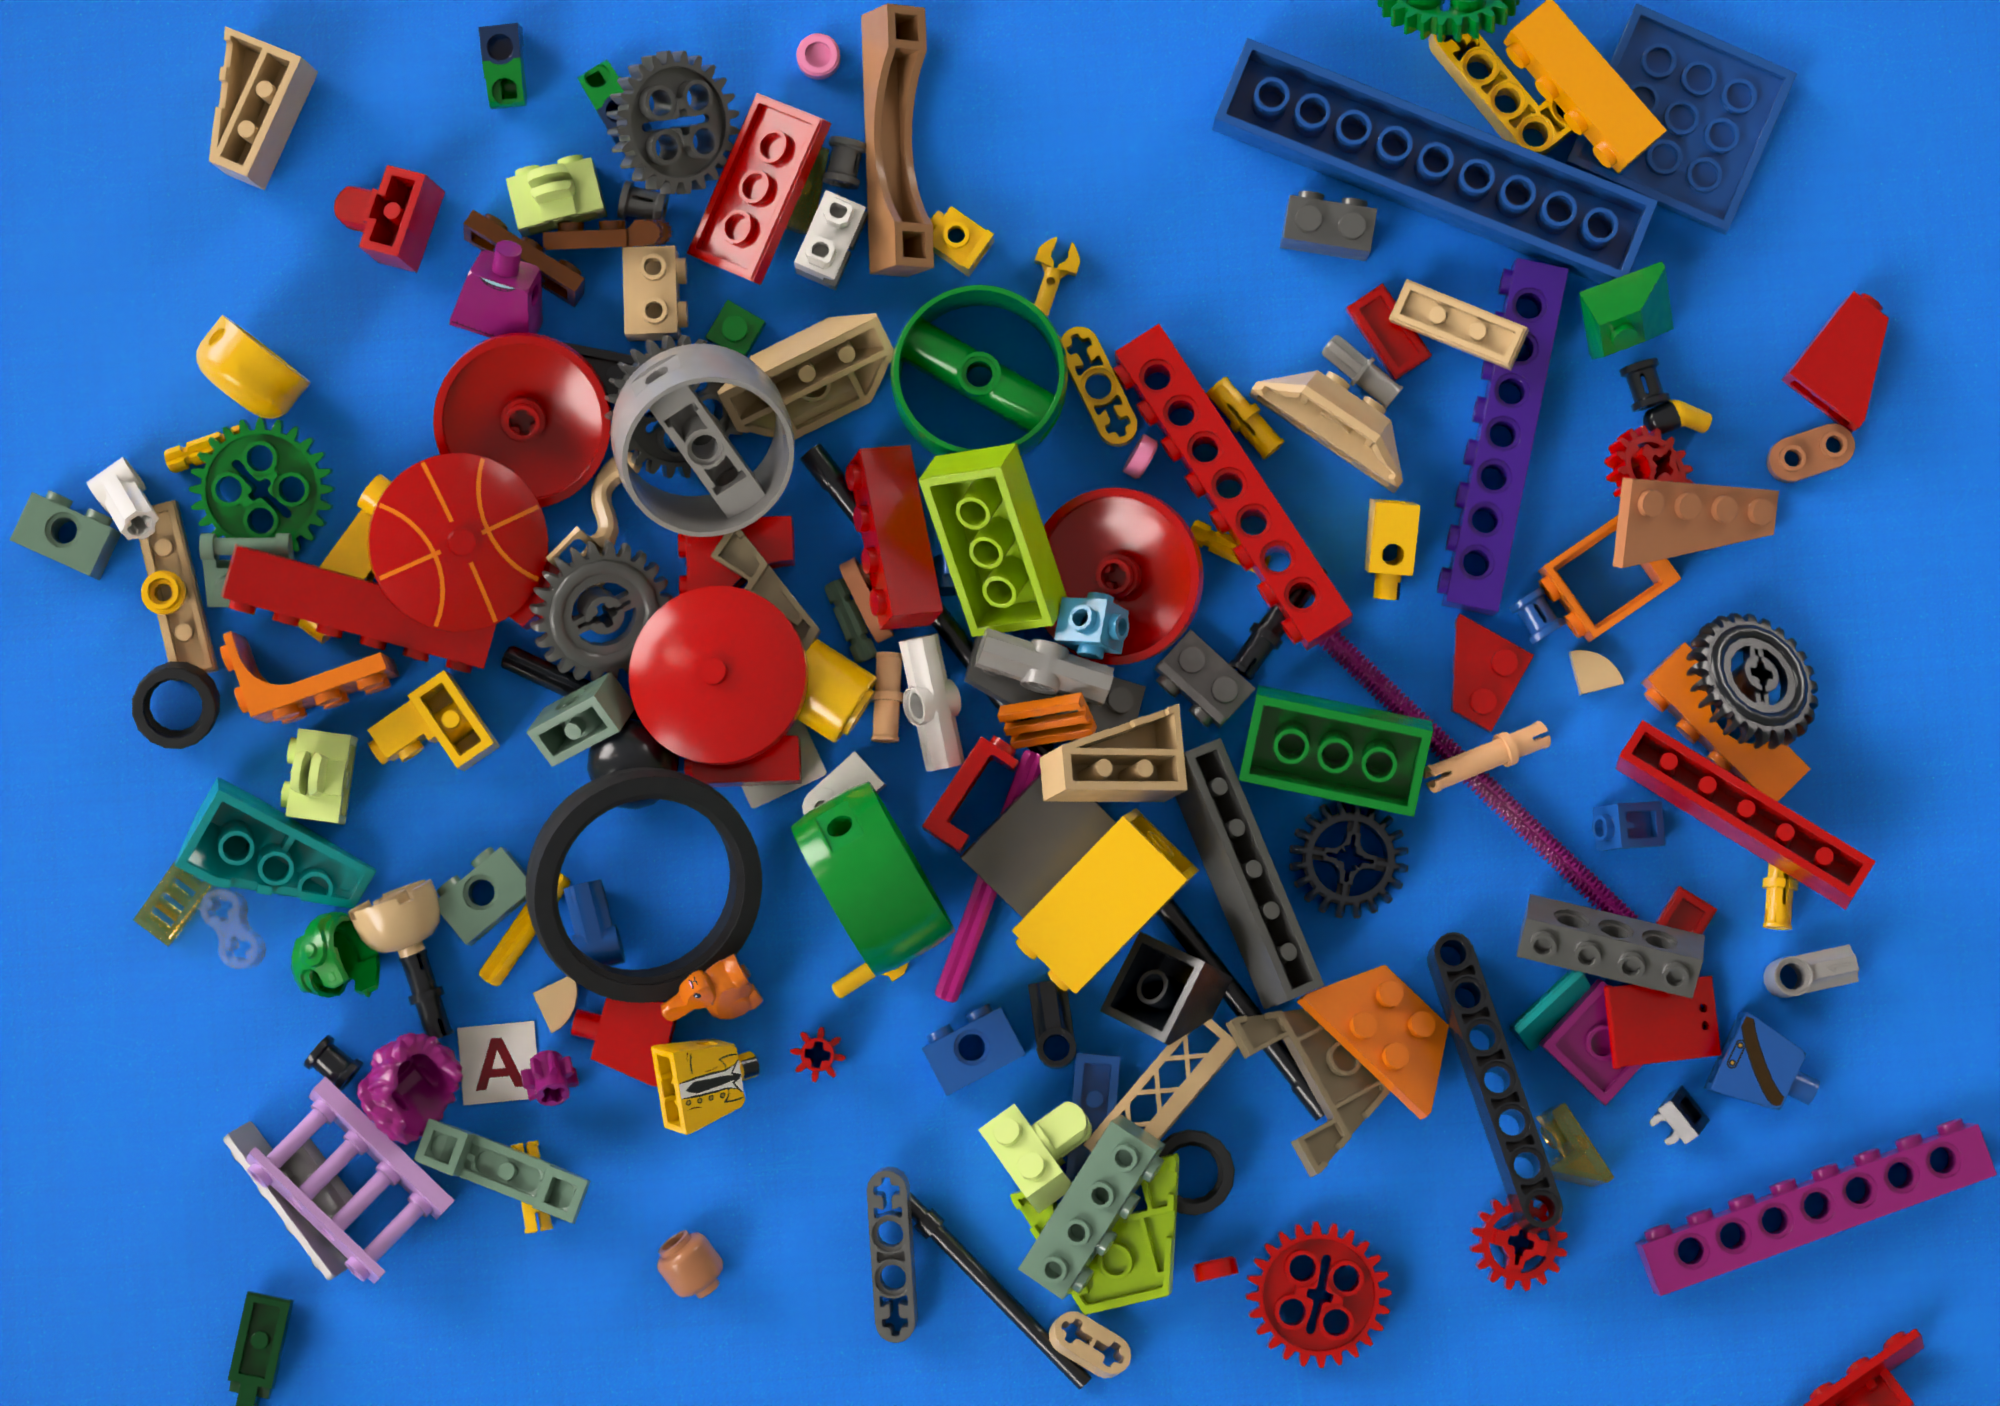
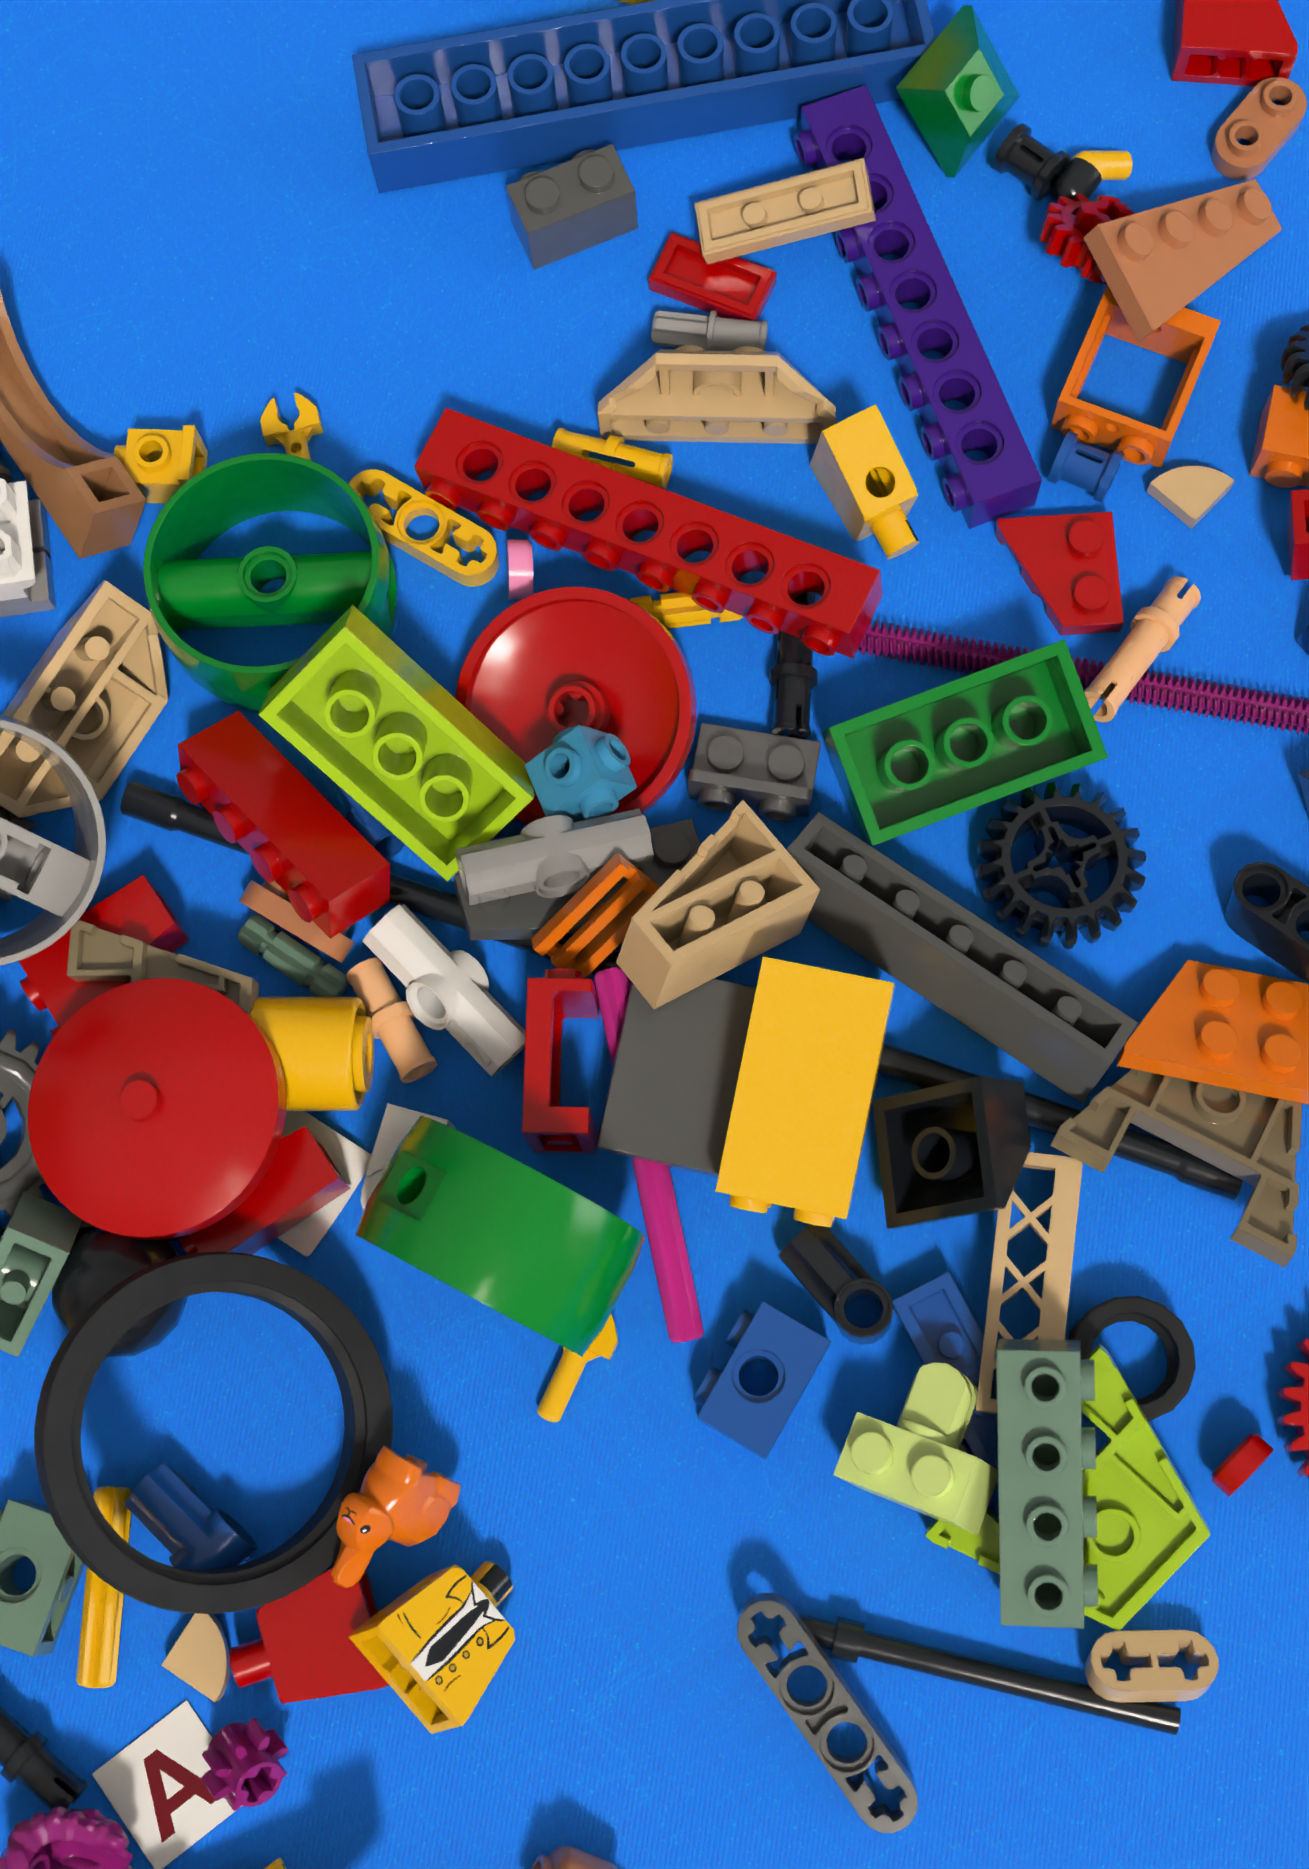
camera: 25 degrees left, 10 degrees down
(808, 1062) = (554, 1503): red gear -> none

